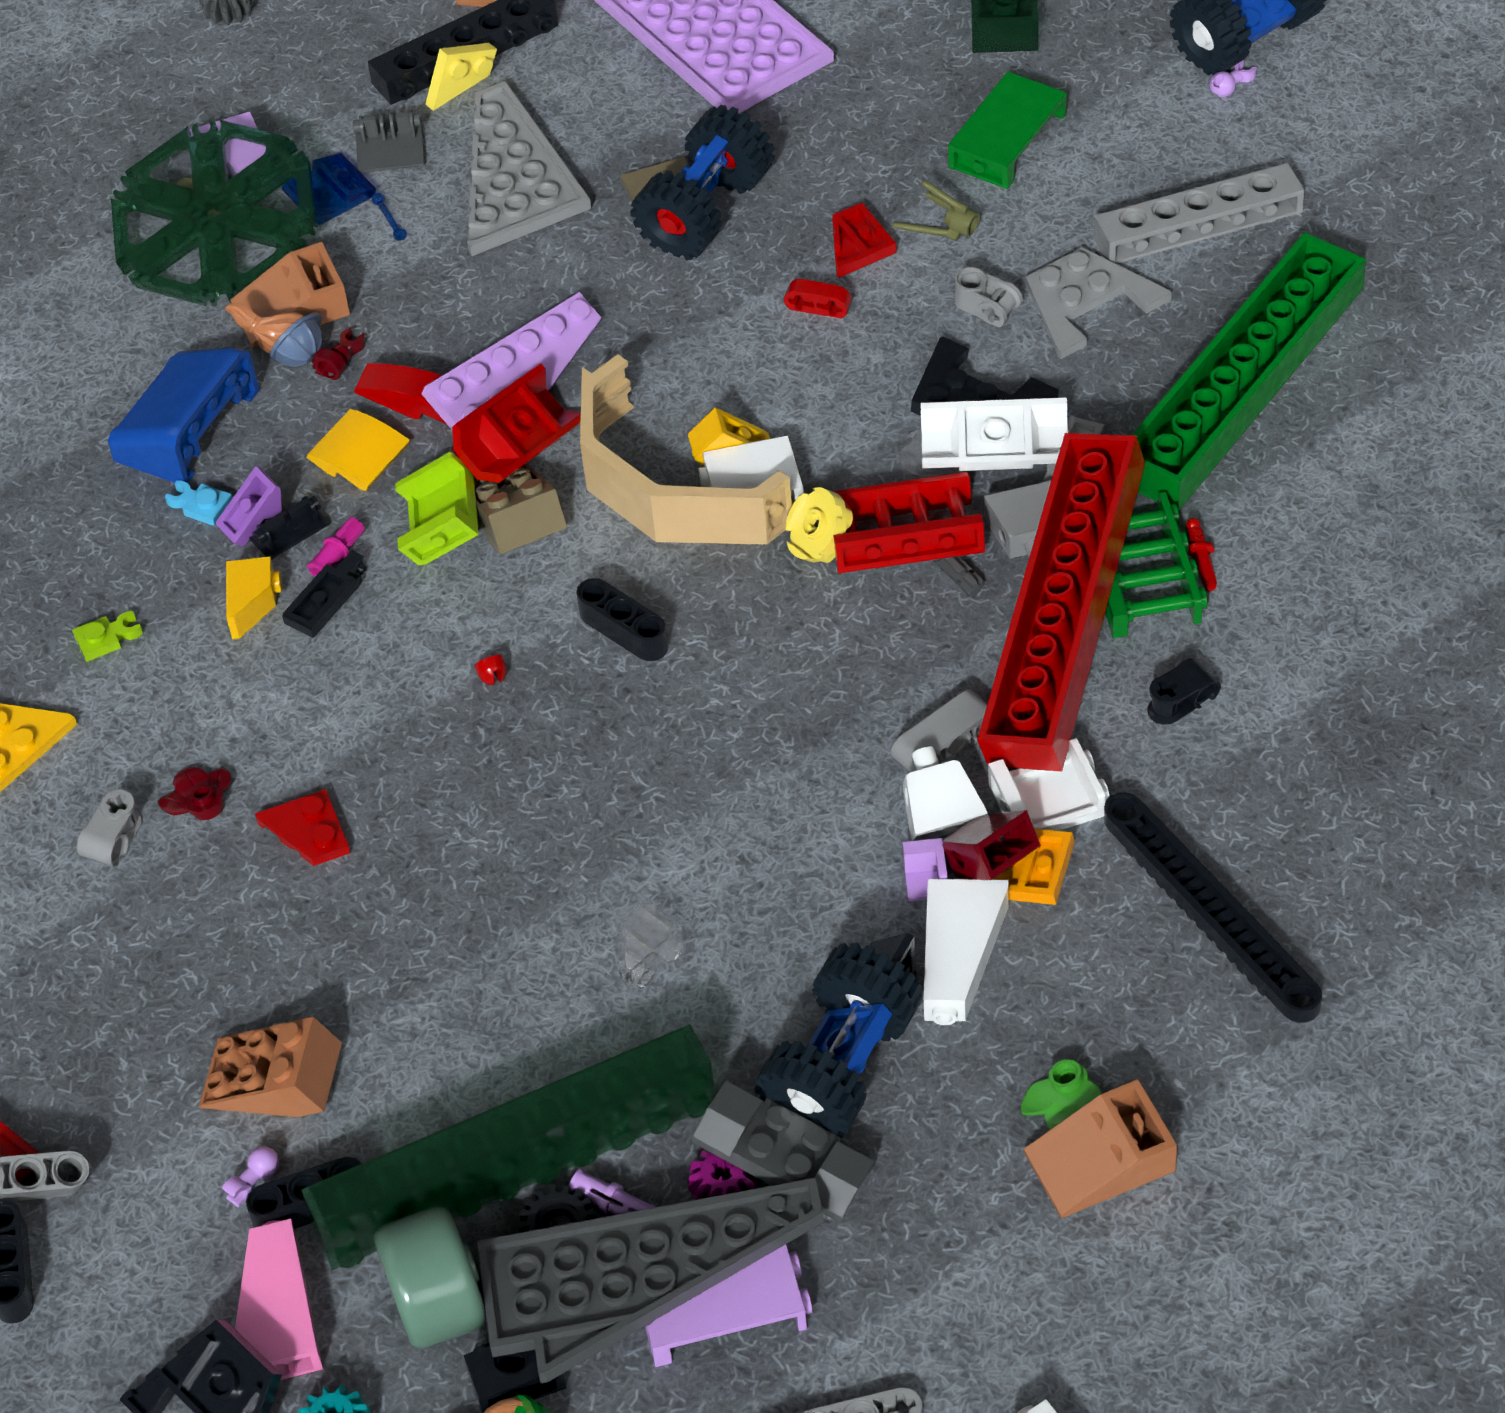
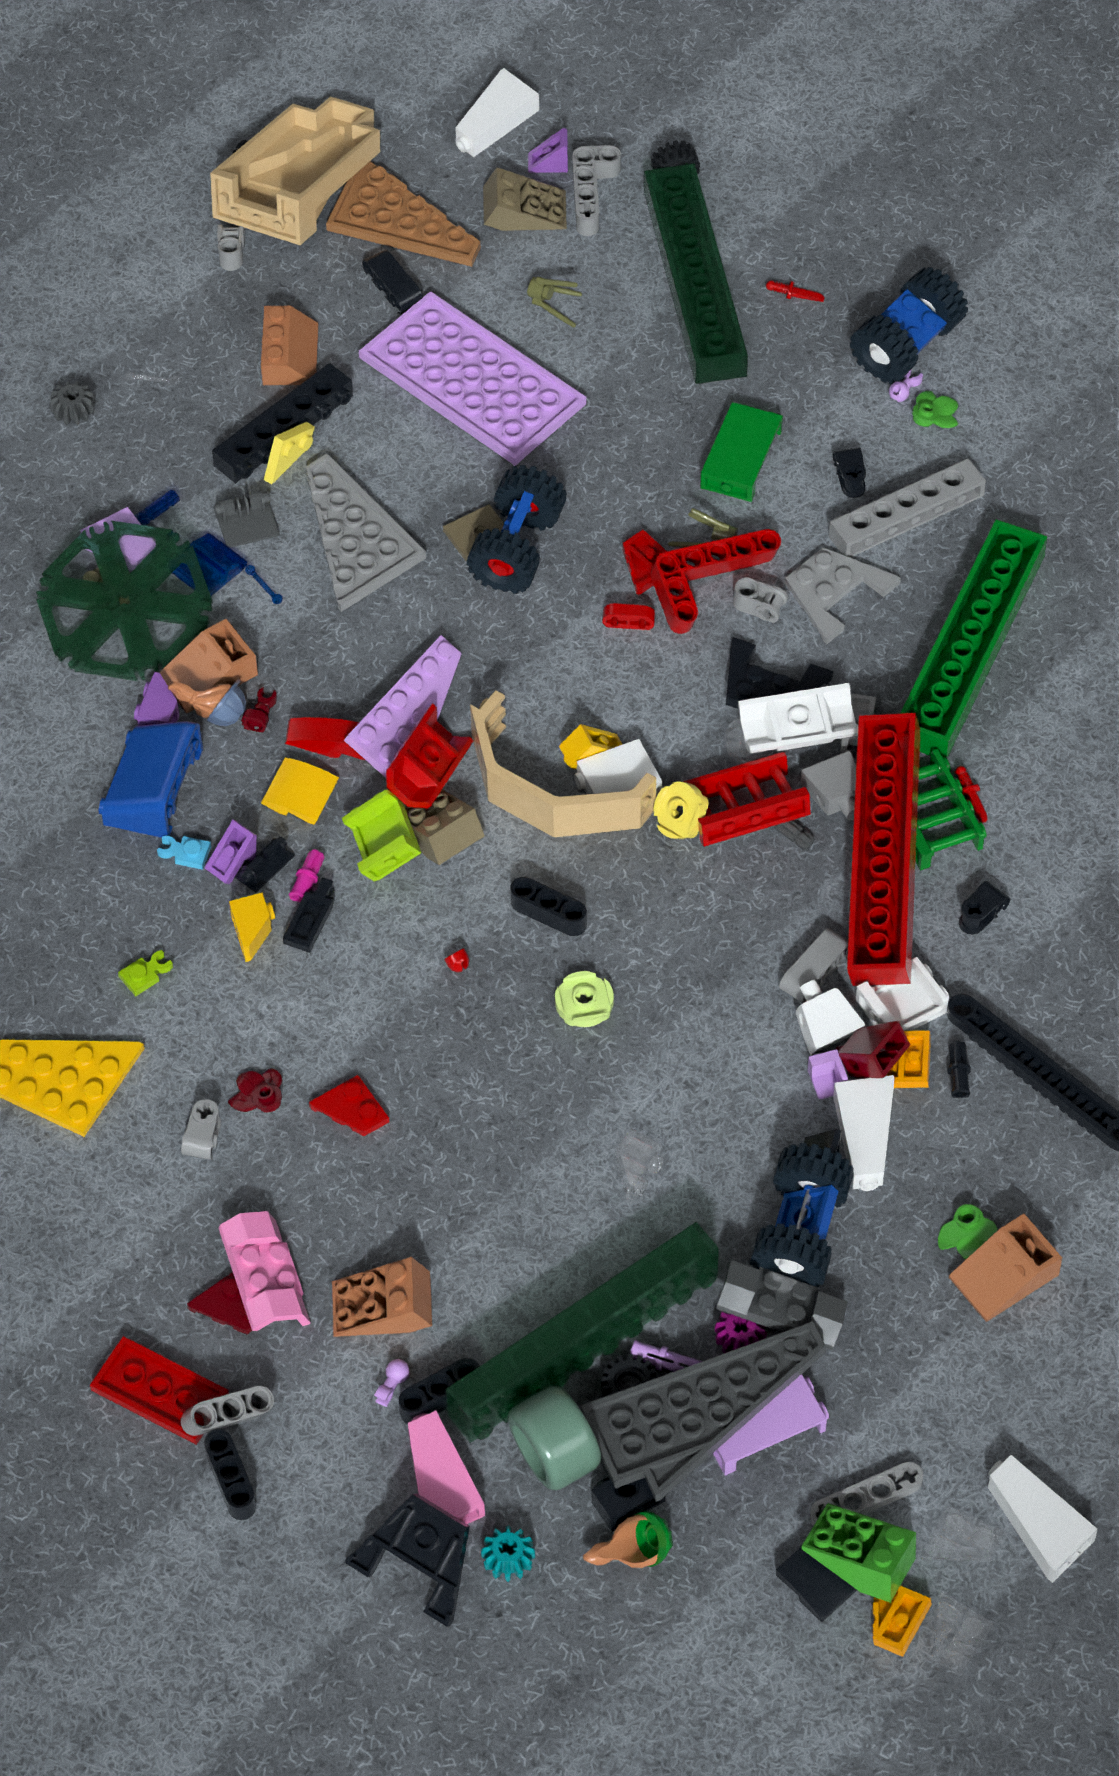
camera: 15 degrees left, 5 degrees up
(81, 1047) = (223, 1304): none -> dark red wing
(131, 1008) = (263, 1269): none -> bright pink piece
(215, 328) = (158, 703): none -> medium lavender slope
(290, 119) = (157, 507): none -> clear blue axle
(640, 754) = (588, 1013): none -> yellowish green plate
(926, 251) = (705, 566): none -> red beam
(1102, 888) = (959, 1070): none -> black axle
(1138, 166) = (850, 471): none -> black piece
(1262, 110) = (934, 410): none -> bright green plate

